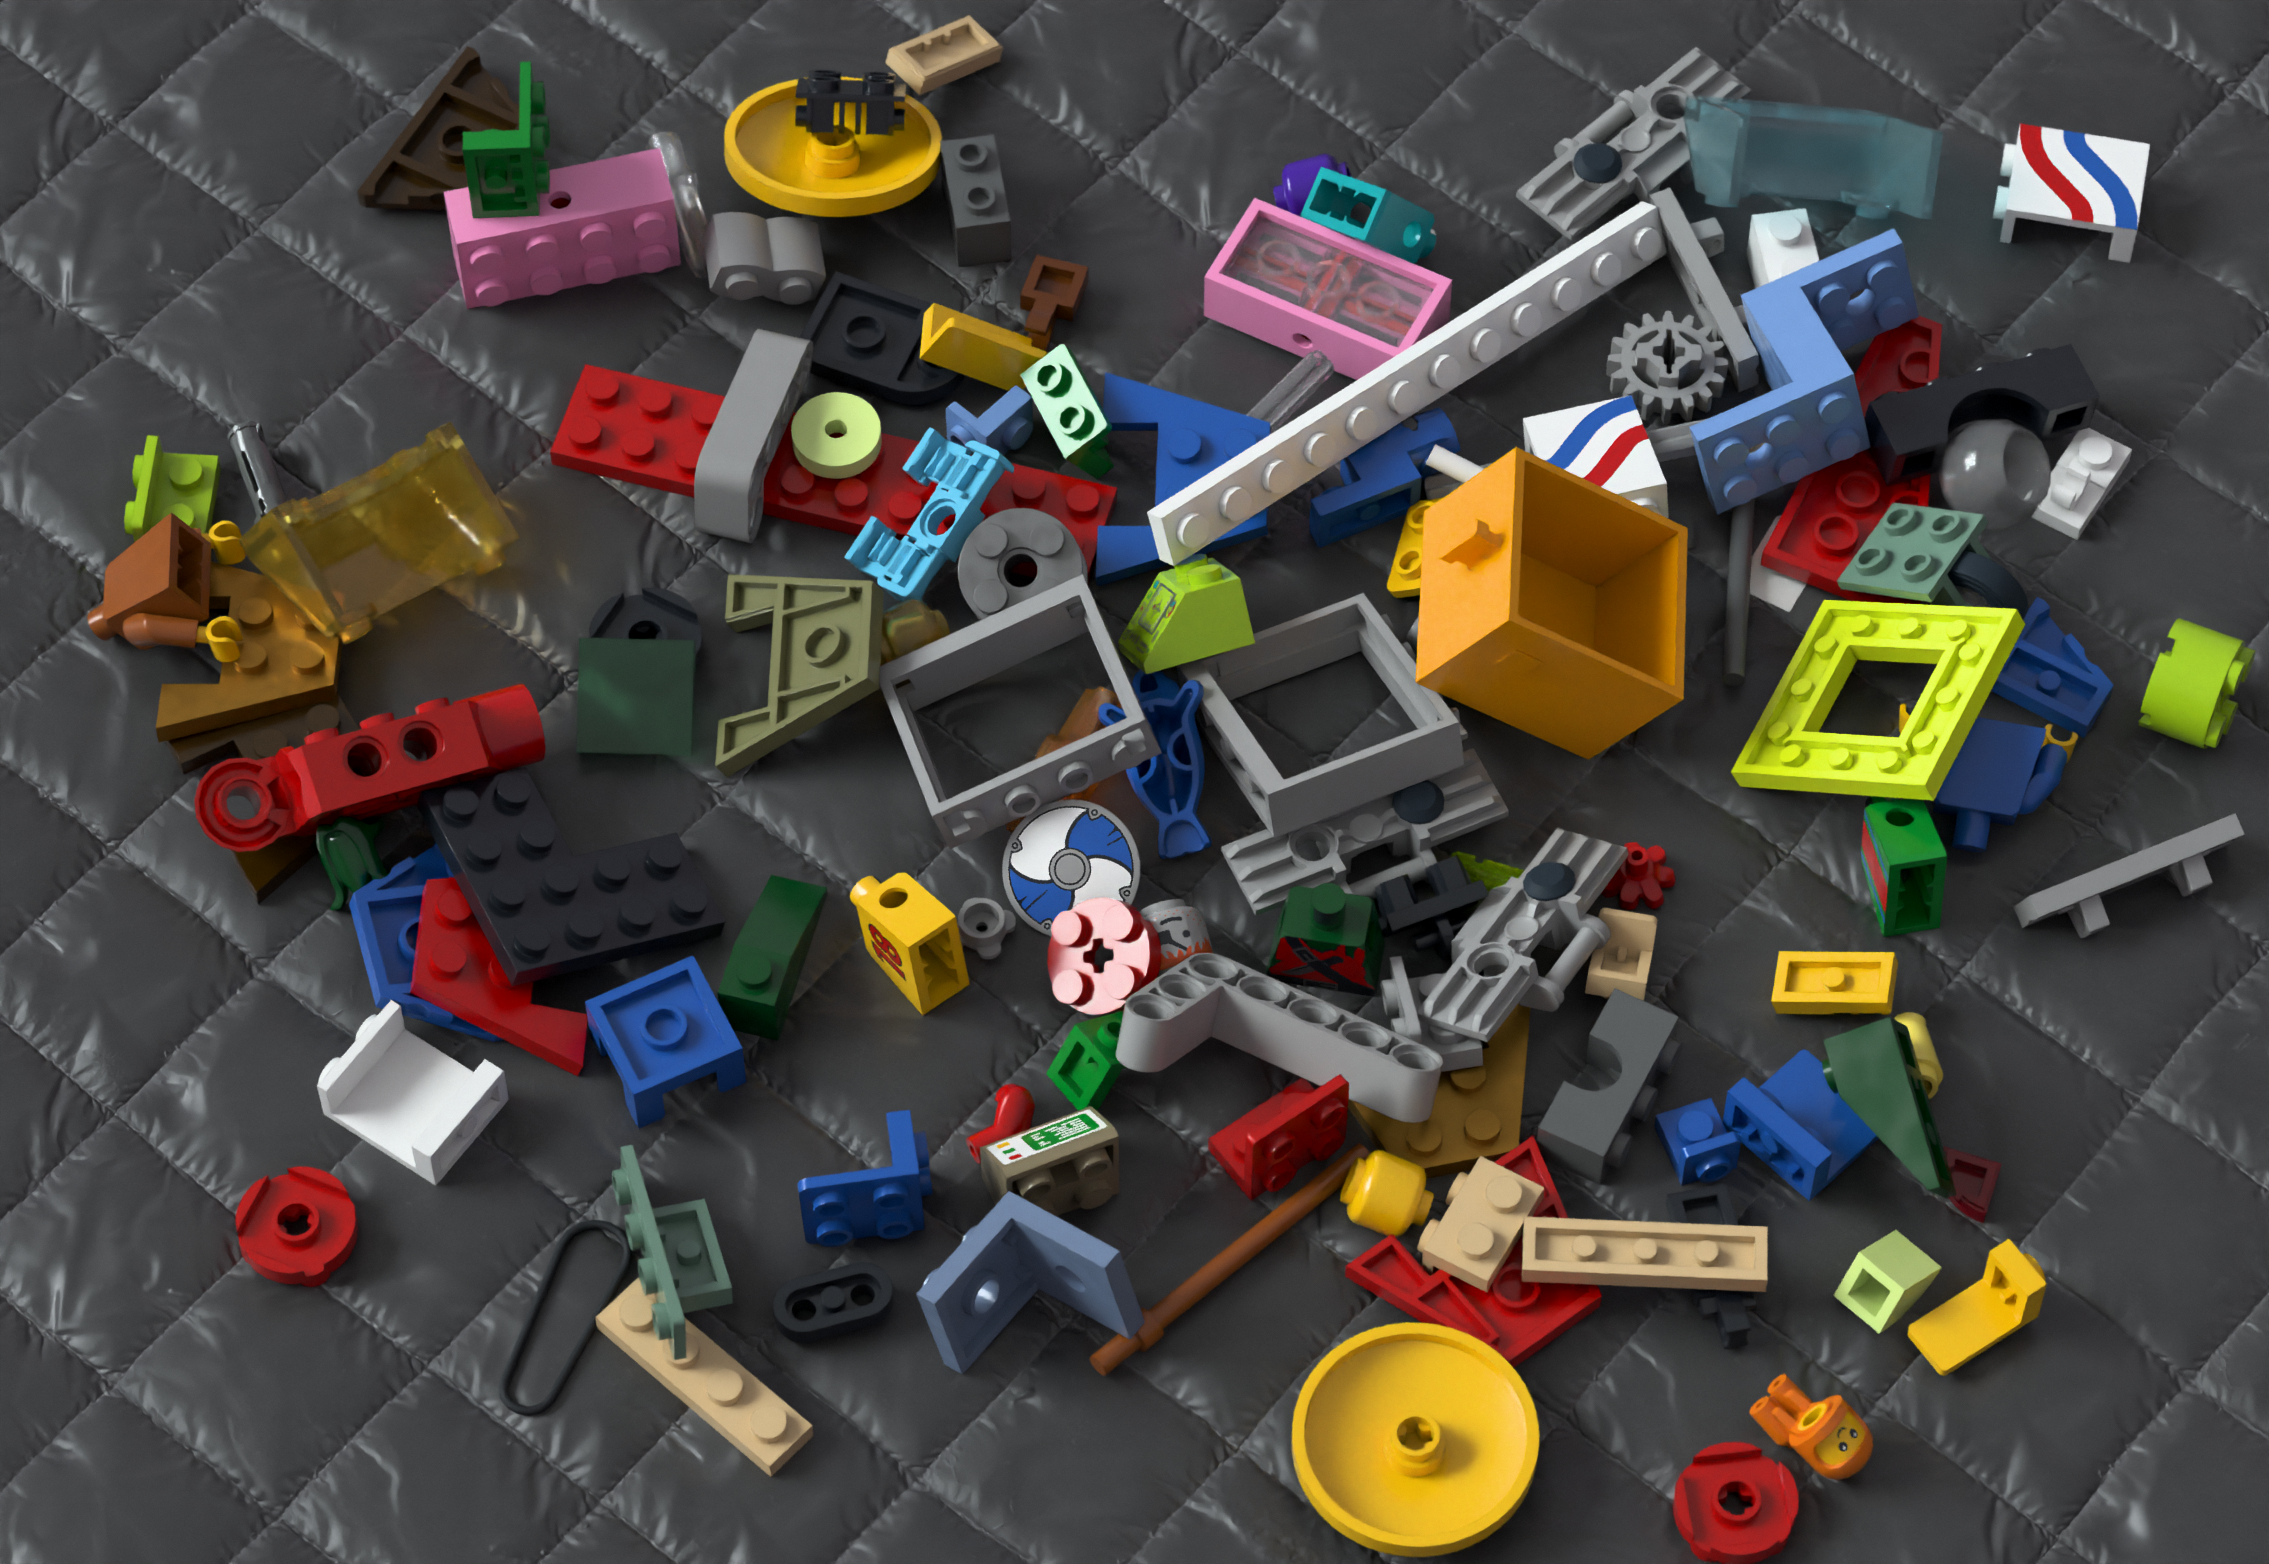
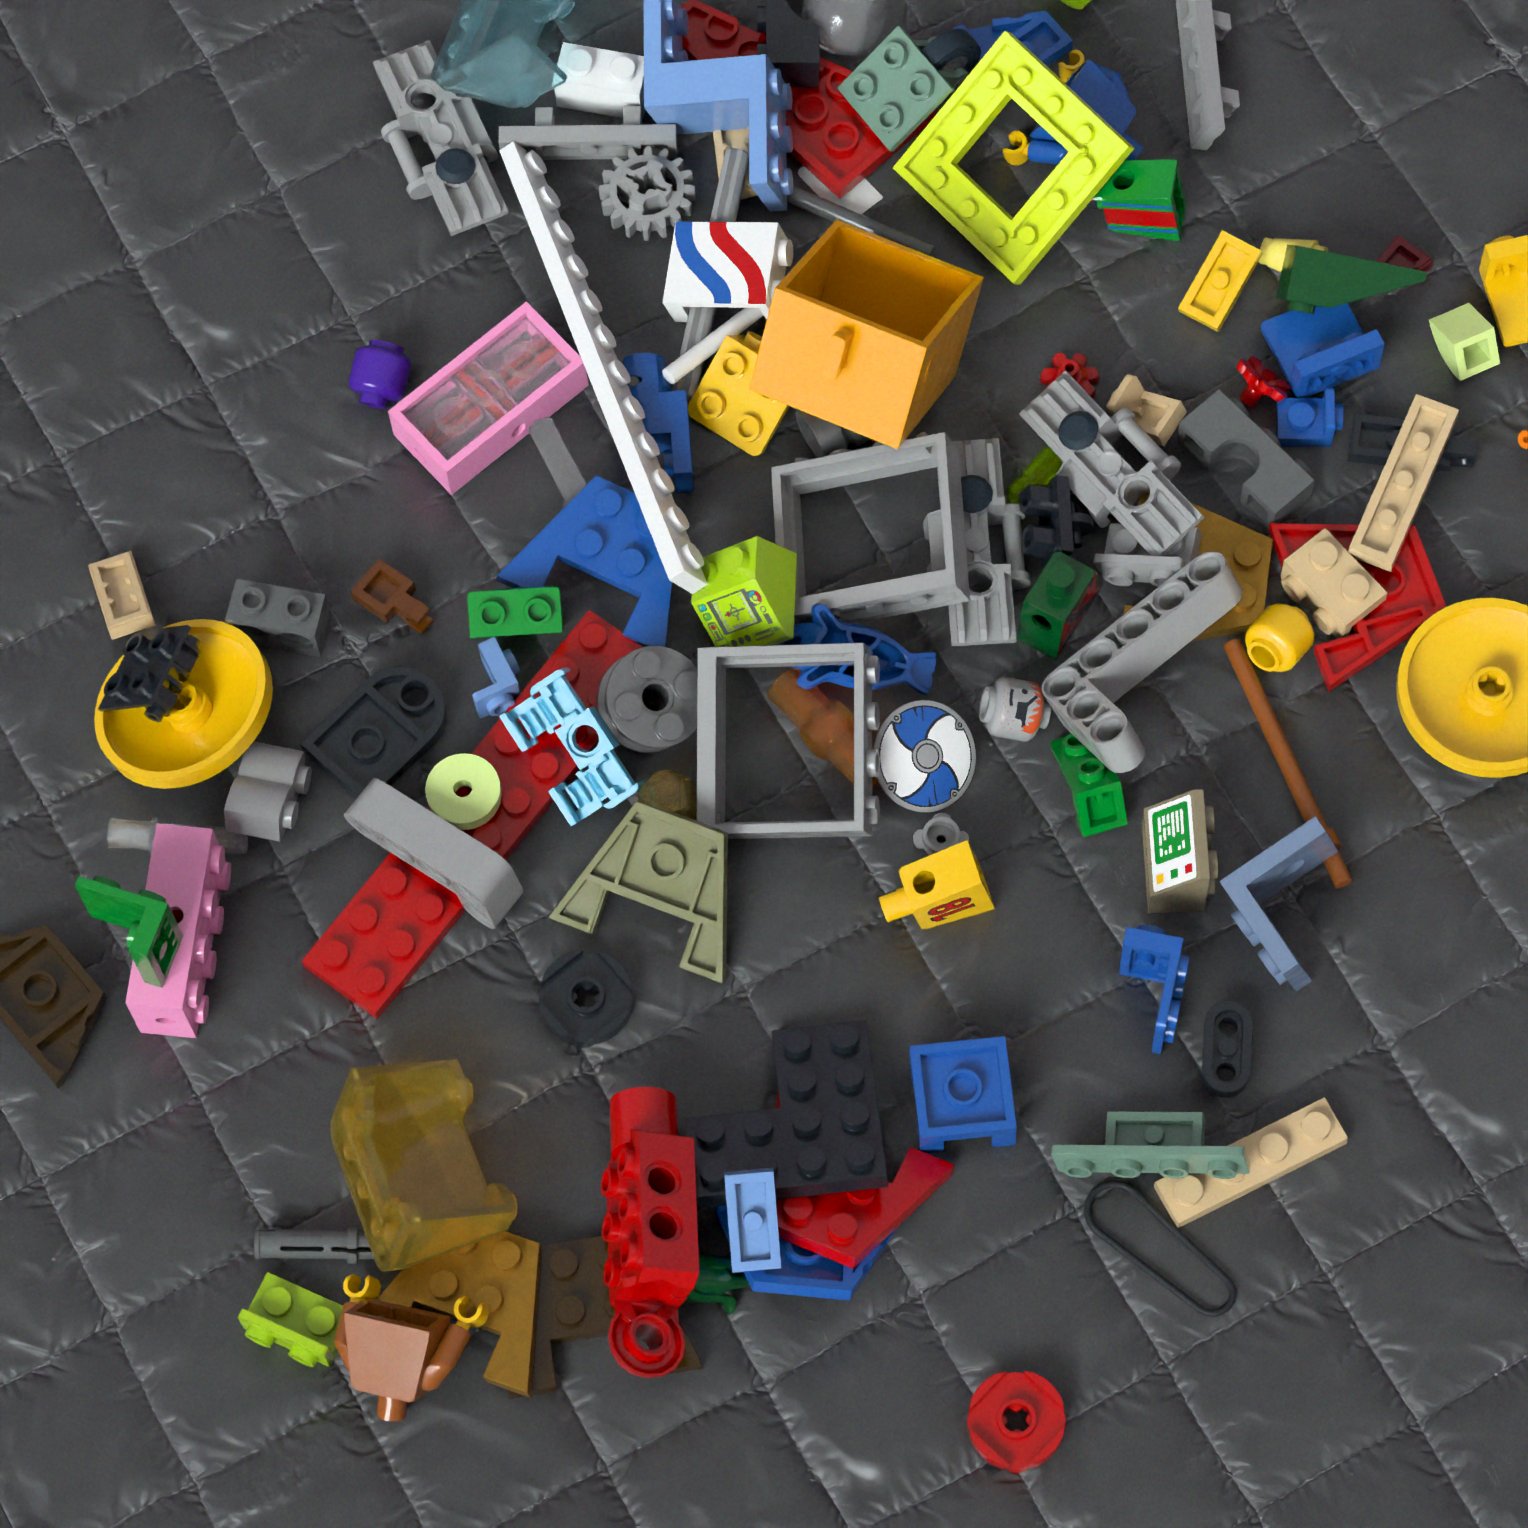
camera: 65 degrees left, 10 degrees up
(409, 1095) = (933, 1300): white panel -> none
(413, 854) = (752, 1220): none -> medium blue plate
(635, 696) = (642, 1018): clear green tile -> none
(770, 956) = (908, 993): dark green slope -> none
(976, 347) = (426, 660): yellow panel -> none
(1012, 1116) = (1120, 875): red arm -> none
(1073, 950) = (1023, 783): plate -> none
(1283, 1135) = (1205, 690): red bracket -> none
(1392, 225) = (441, 334): teal torso -> none
(1722, 1066) = (1260, 382): none -> red plant

